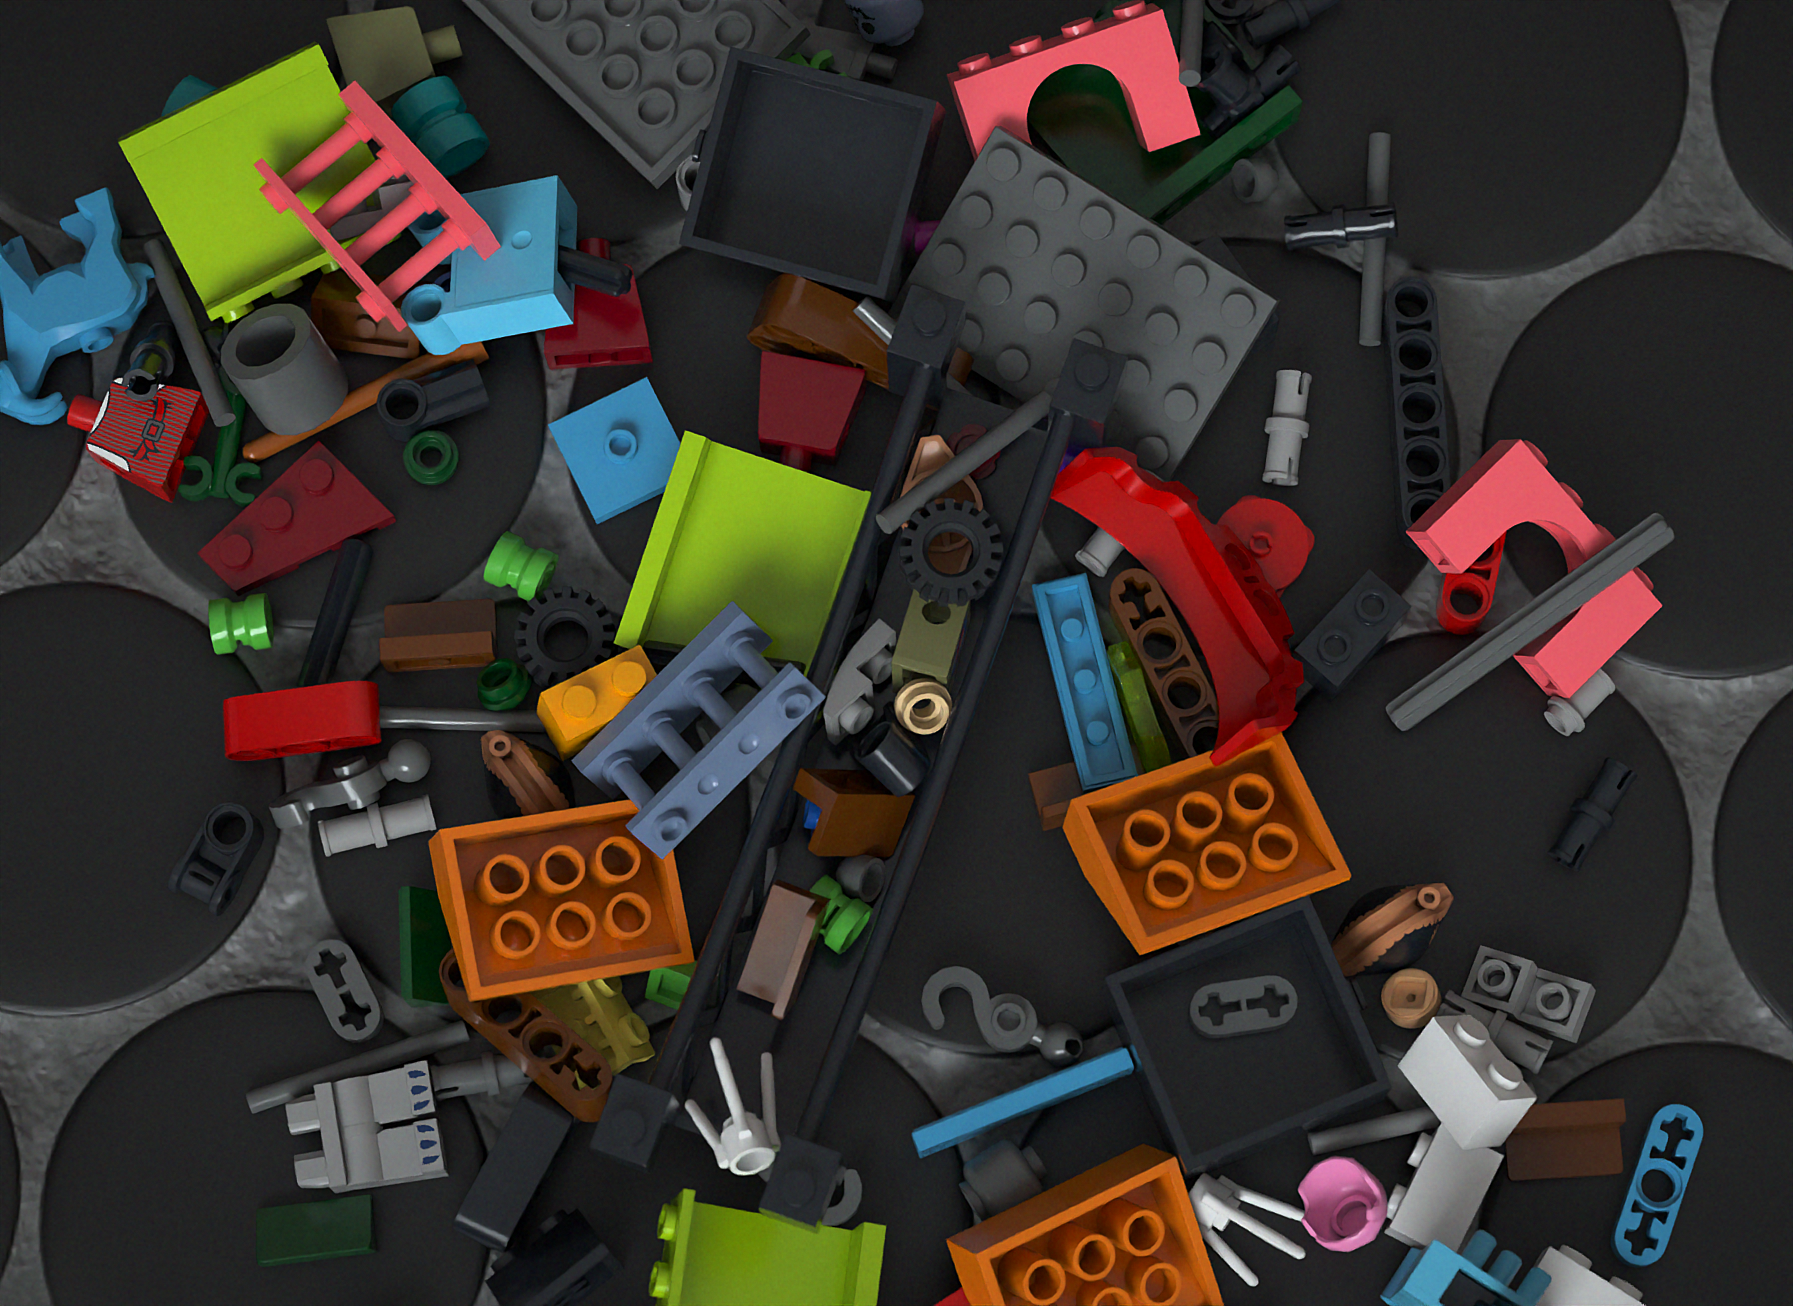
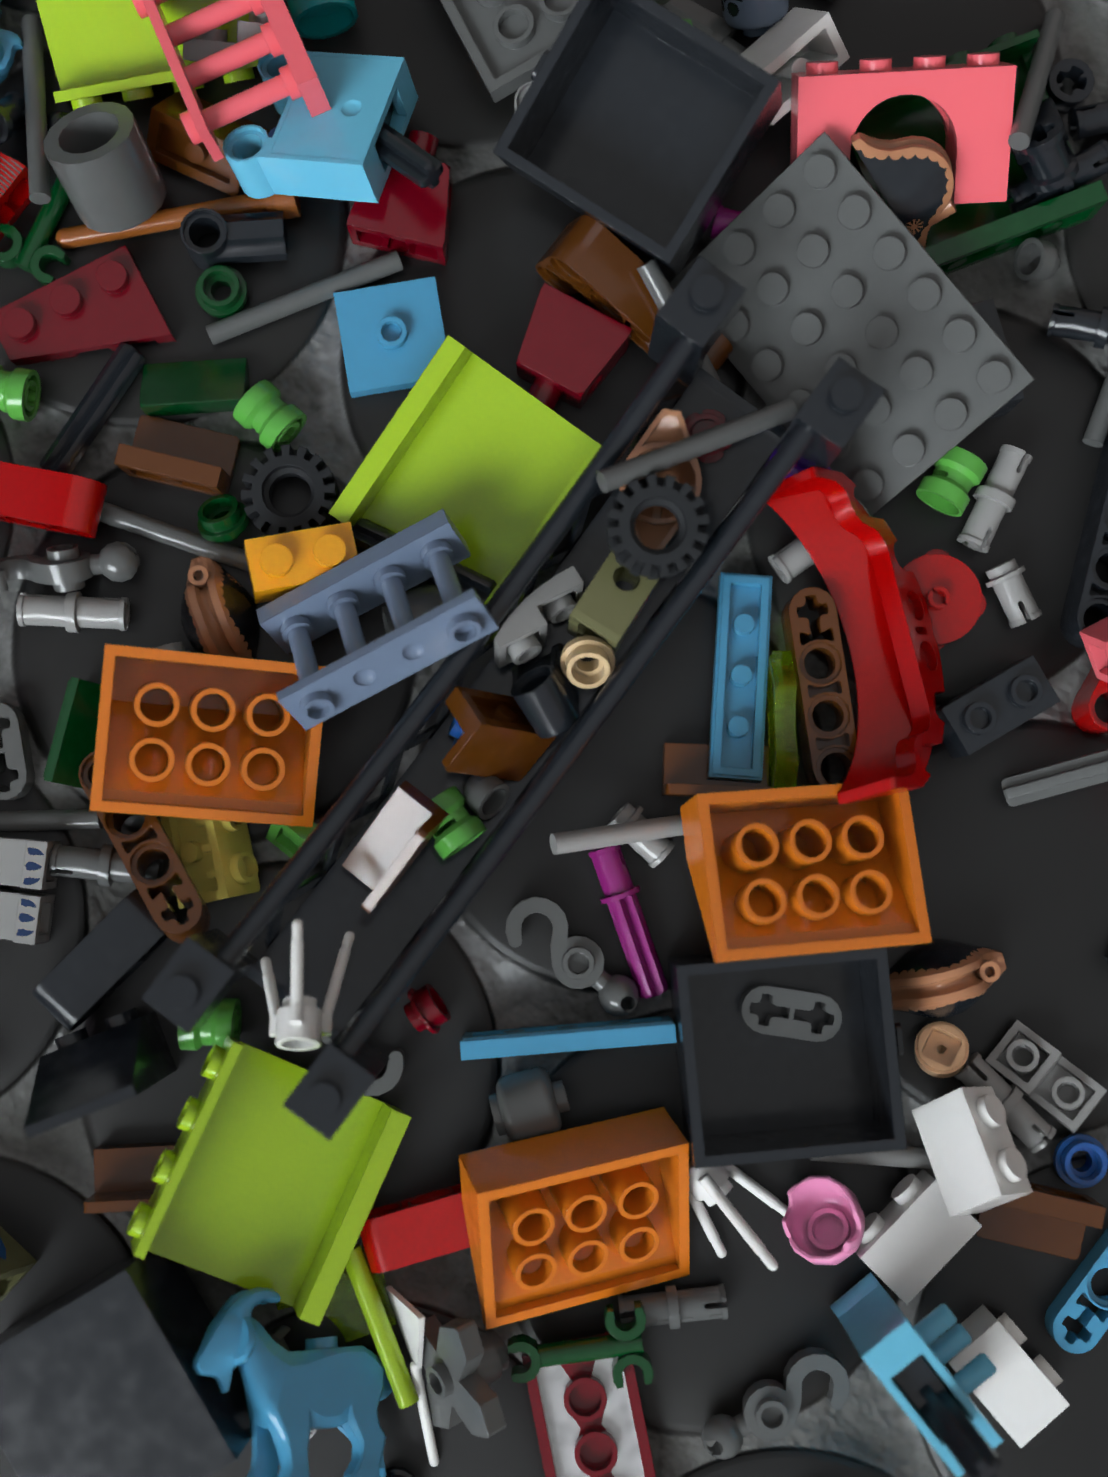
camera: 10 degrees right, 10 degrees up
(432, 561) = (193, 386): none -> dark green slope
(517, 438) = (303, 297): none -> dark grey bar
(642, 1200) = (222, 1022): none -> bright green wheel
(866, 1120) = (426, 1009): none -> dark red plate
(934, 50) = (790, 43): none -> white brick
(1007, 875) = (616, 834): none -> light grey bar
(1032, 874) = (651, 851): none -> light grey pin
(1047, 964) = (629, 920): none -> magenta axle
(1098, 143) = (912, 177): none -> hat
(1237, 424) = (952, 481): none -> bright green wheel
(1333, 512) = (1011, 589): none -> light grey pin
(1604, 1056) = (1094, 1167): none -> blue plate

